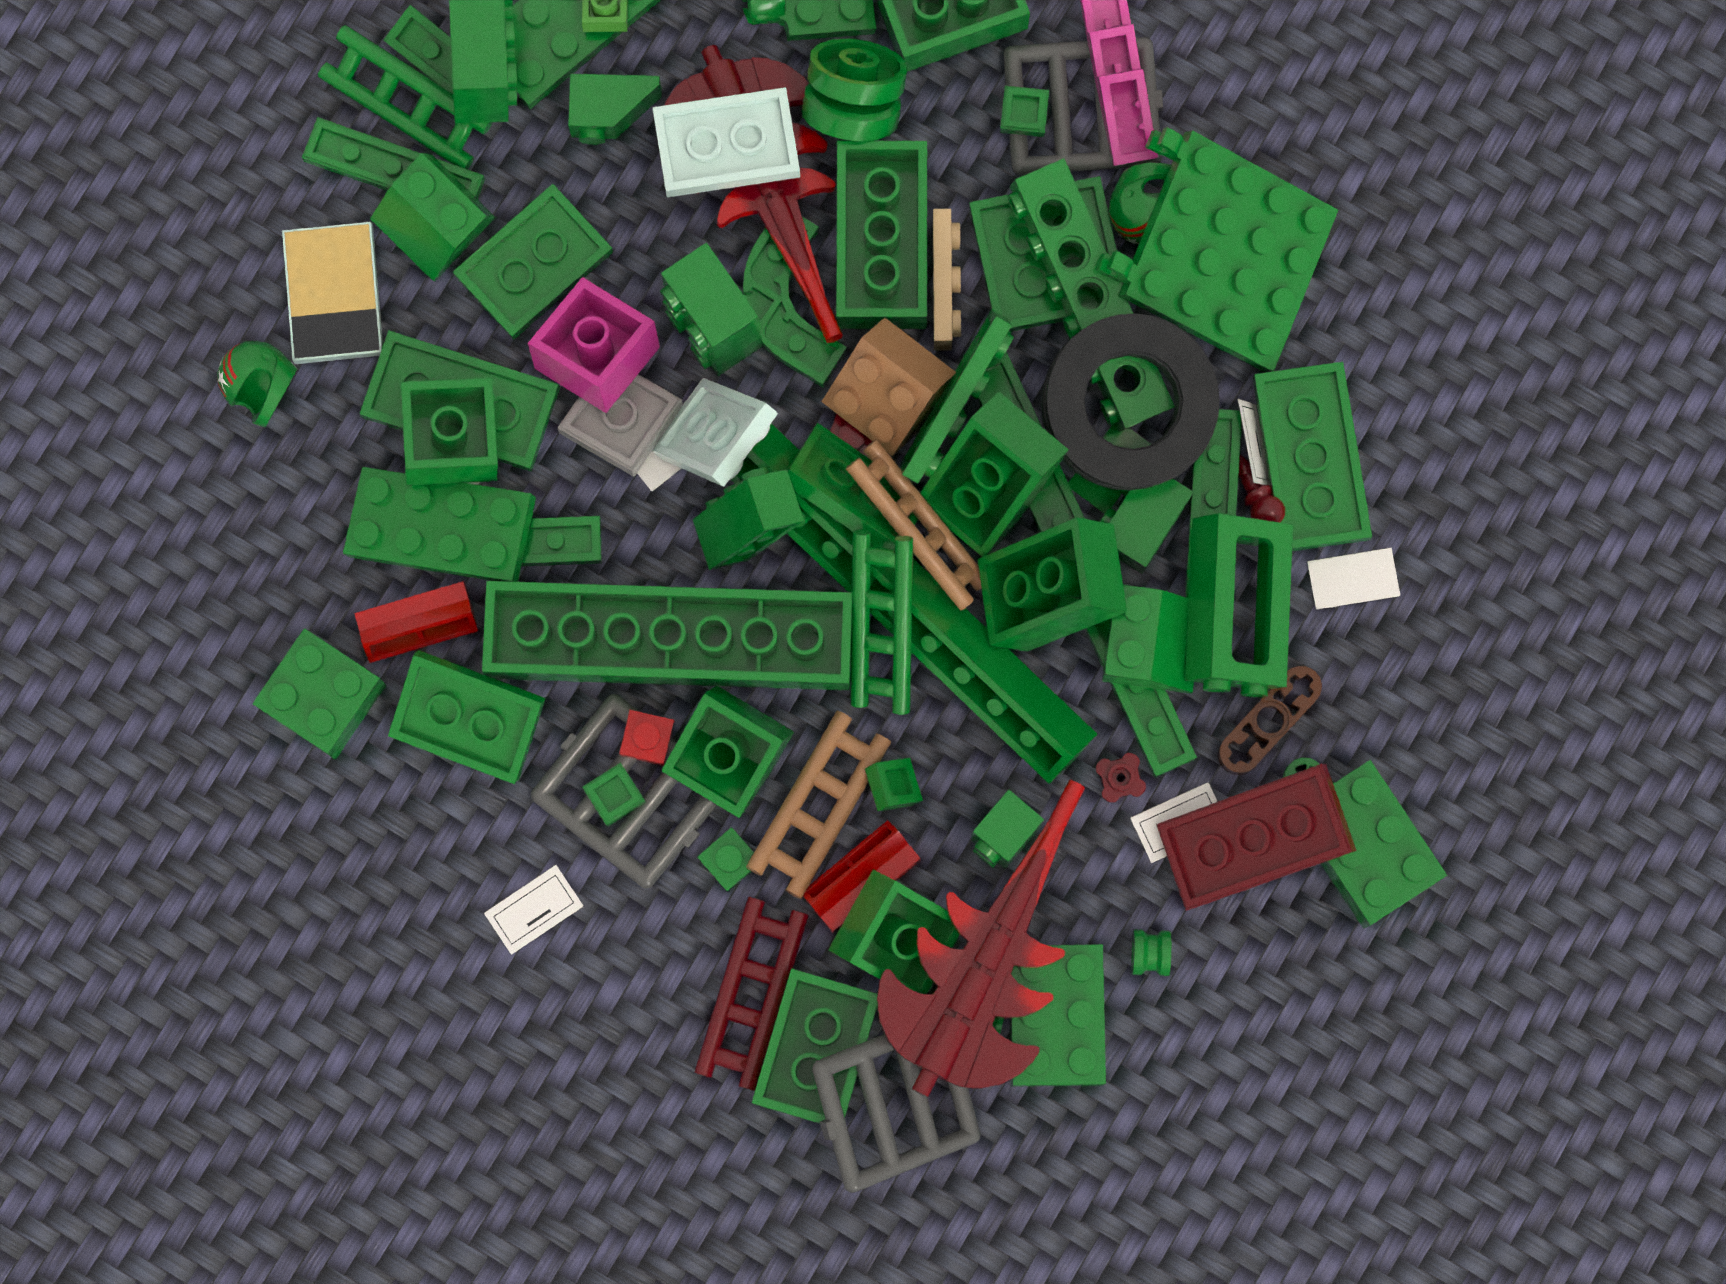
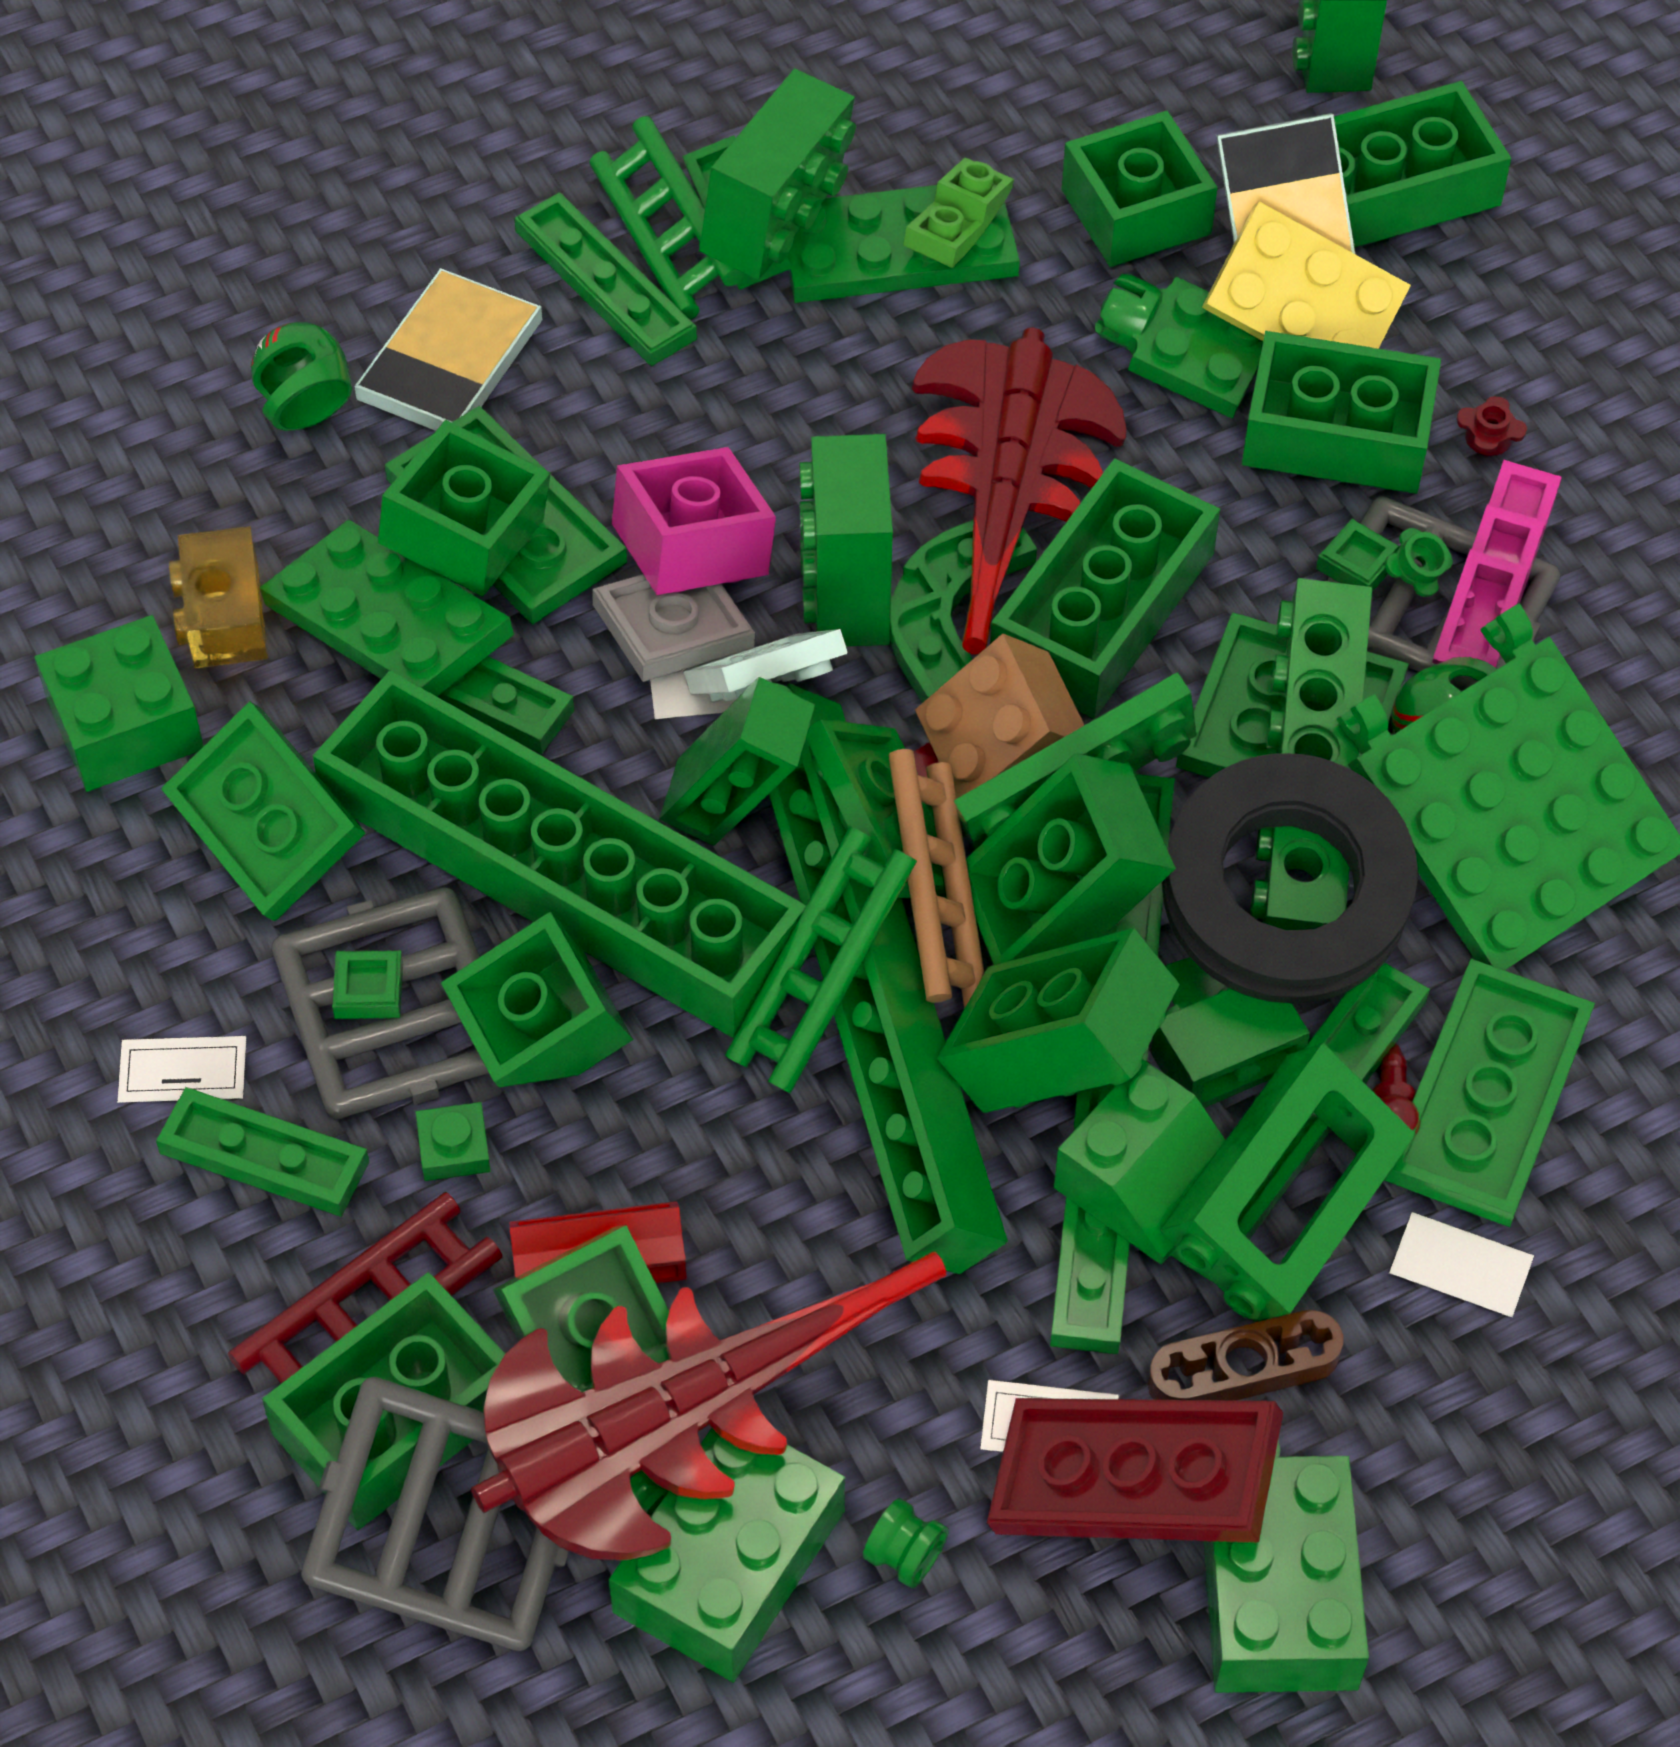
camera: 30 degrees right, 25 degrees down
(308, 554) = (220, 597): none -> clear yellow brick
(416, 622) = (286, 690): red piece -> none
(431, 215) = (608, 322): green slope -> none
(533, 261) = (691, 416): green plate -> none
(608, 104) = (883, 325): green slope -> none
(625, 938) = (263, 1151): none -> green plate
(647, 737) = (450, 942): red plate -> none
(726, 142) = (985, 399): light aqua plate -> none
(791, 813) = (586, 1169): medium nougat bar -> none
(854, 89) = (1169, 424): green wheel -> none
(893, 784) = (712, 1162): green plate -> none
(945, 280) = (1174, 636): tan plate -> none
(1005, 831) = (809, 1263): green brick -> none
(1075, 87) = (1429, 551): none -> green plate
(1128, 767) = (1005, 1336): dark red plate -> none
(1254, 442) = (1423, 1030): white sticker -> none

